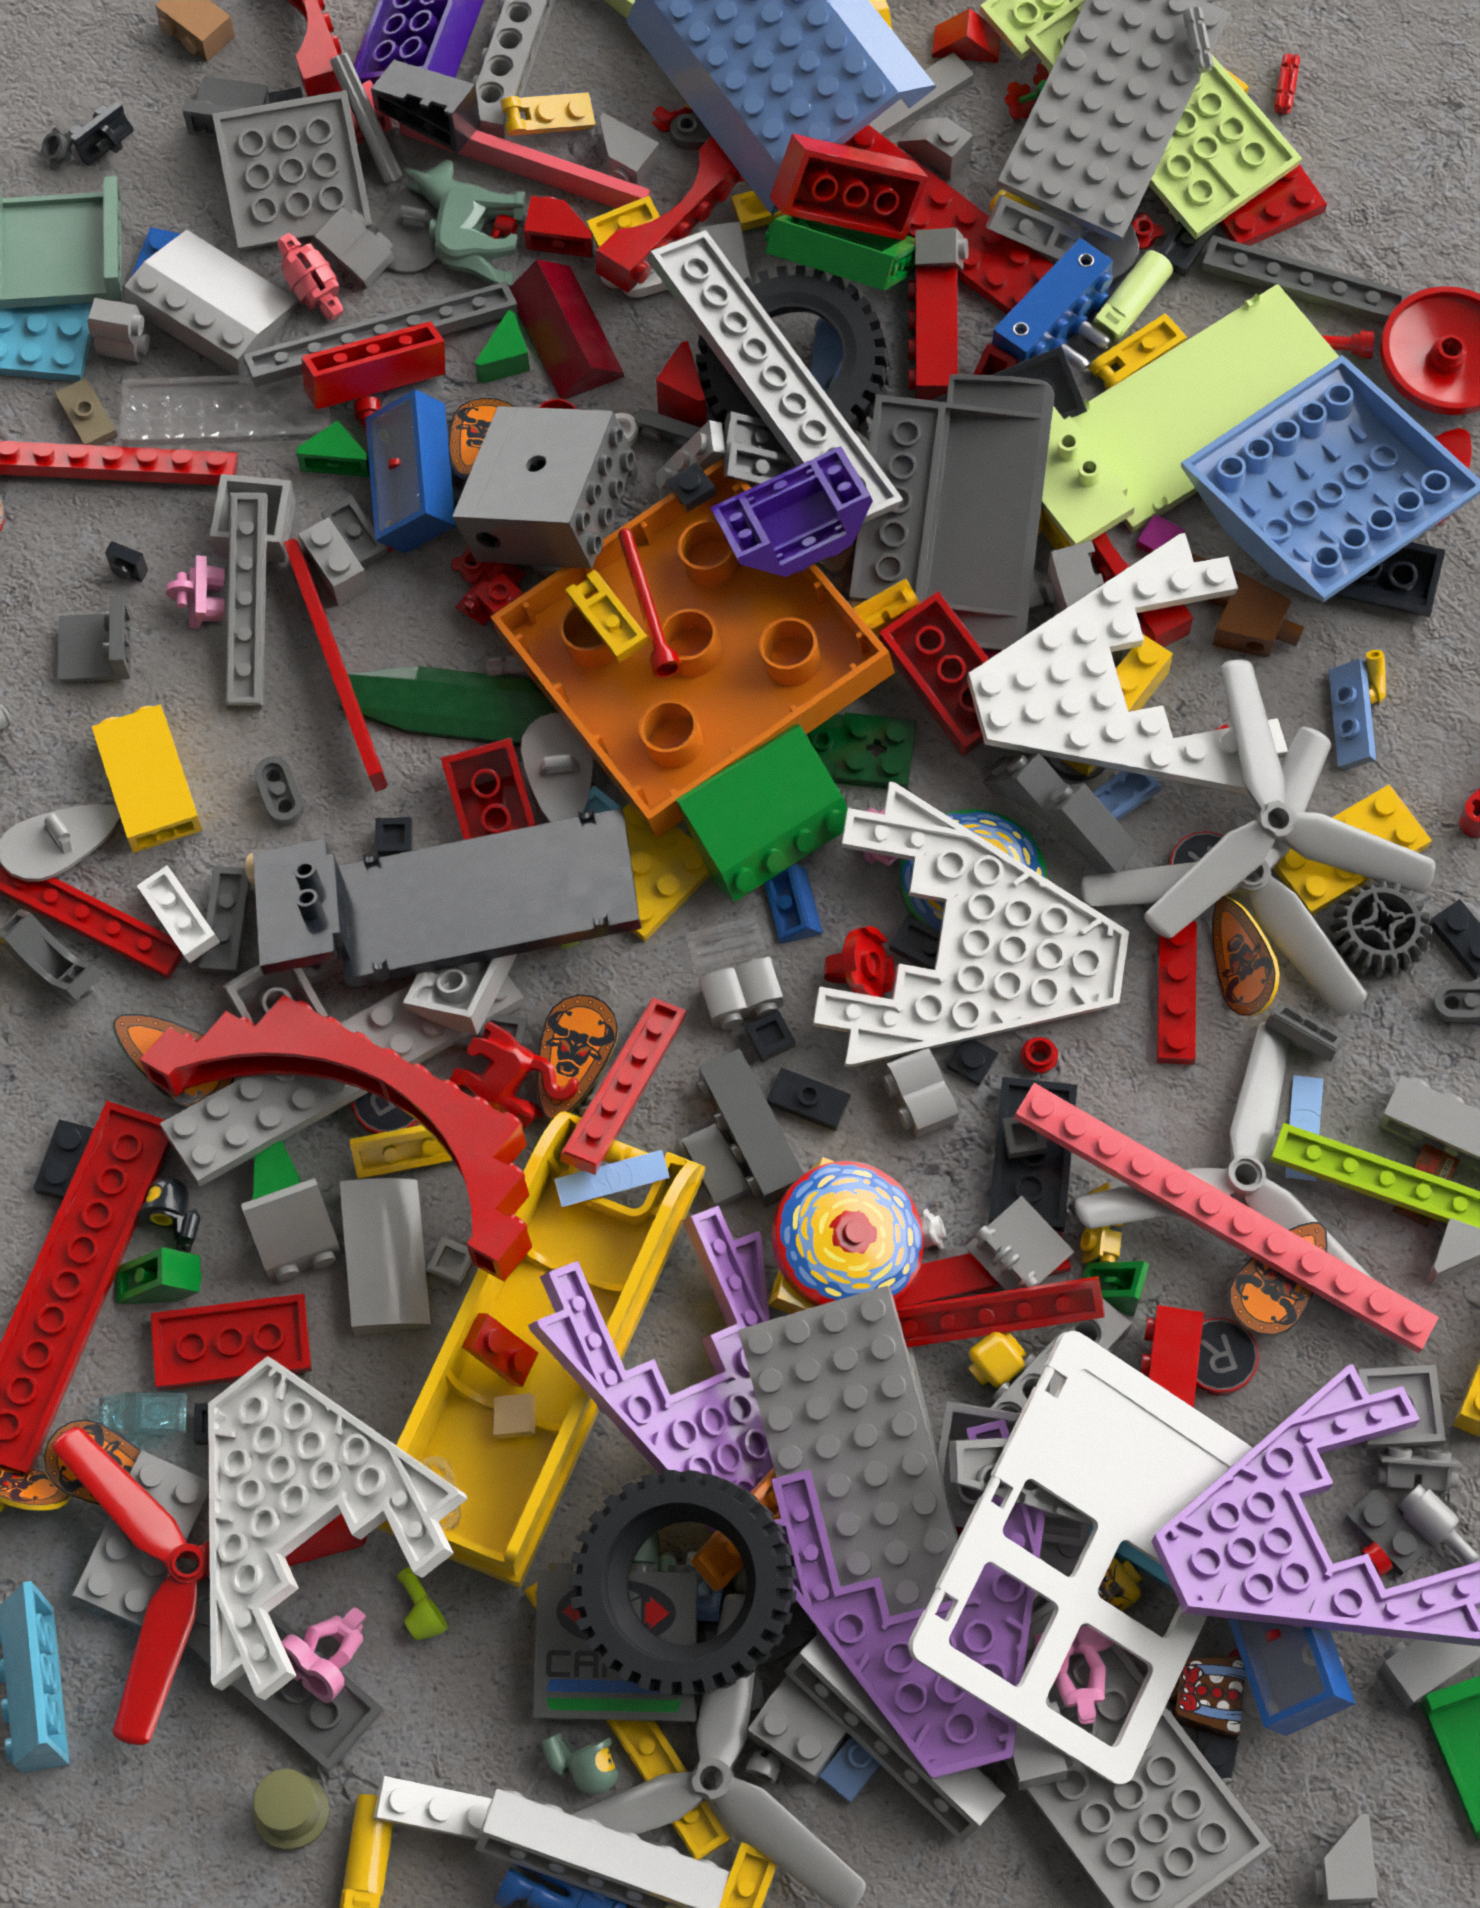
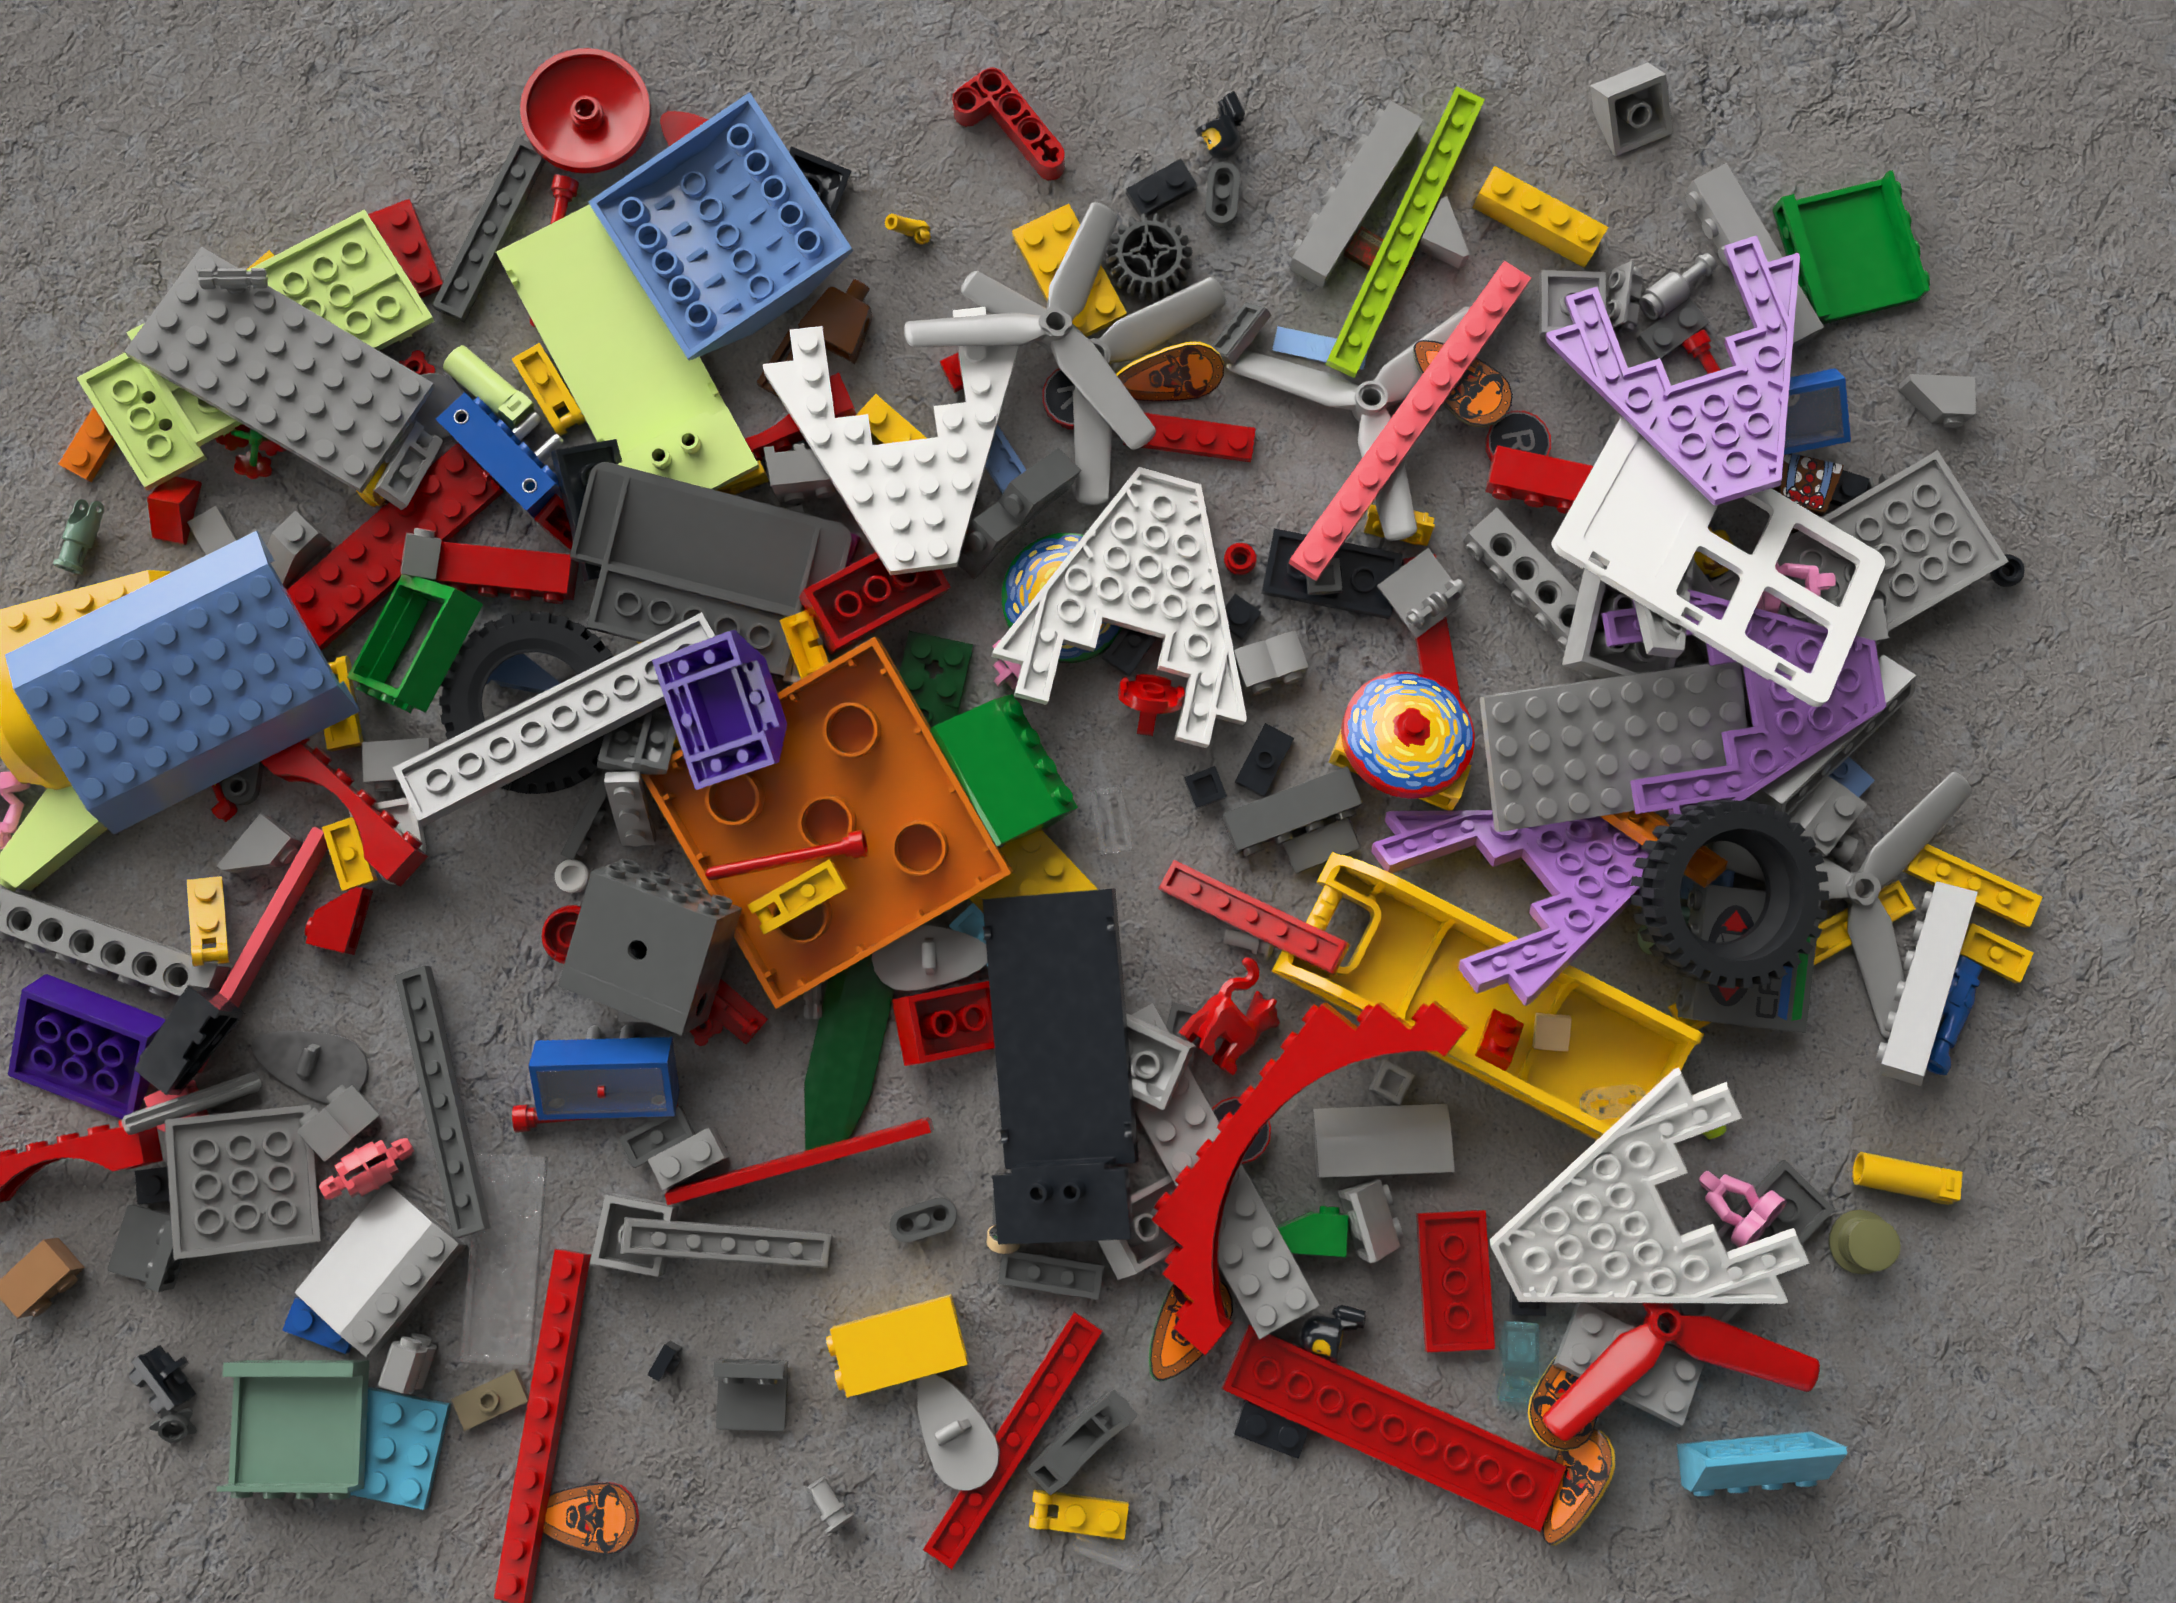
camera: 90 degrees left, 15 degrees up
(158, 1277) = (1394, 1344): green slope -> none
(178, 914) = (1045, 1318): white plate -> none
(201, 578) = (709, 1294): bright pink hips -> none
(333, 453) = (567, 1153): green slope -> none
(373, 365) = (481, 1108): red brick -> none
(393, 835) = (980, 1113): black plate -> none
(396, 1151) = (1289, 1121): yellow plate -> none
(430, 1808) = (1873, 1119): white plate -> none
(460, 219) = (312, 1014): sand green animal -> none
(468, 432) = (564, 1014): shield -> none
(498, 594) = (750, 999): red bracket -> none
(504, 226) = (328, 973): red hand -> none
(504, 352) = (474, 979): green slope -> none
(564, 329) = (454, 922): dark red slope -> none
(578, 1043) = (1207, 958): shield -> none
(589, 1766) = (1836, 991): sand green piece -> none
(612, 1178) = (1347, 928): light blue piece -> none
(680, 389) = (549, 810): red slope -> none
(691, 487) = (670, 806): black plate -> none
(741, 993) = (1164, 809): light grey brick -> none
(793, 905) = (1080, 756): blue slope -> none
(848, 187) = (353, 629): red brick -> none
(933, 1230) = (1395, 663): white plate -> none
(996, 1359) = (1514, 623): yellow head -> none
(1001, 1312) = (1481, 617): red plate -> none
(1119, 1282) = (1455, 518): green slope -> none
(1157, 534) = (744, 394): magenta tile -> none
(1183, 249) = (441, 335): black plate -> none
(1286, 84) = (268, 216): red axle -> none
(1352, 714) = (942, 251): medium blue plate -> none

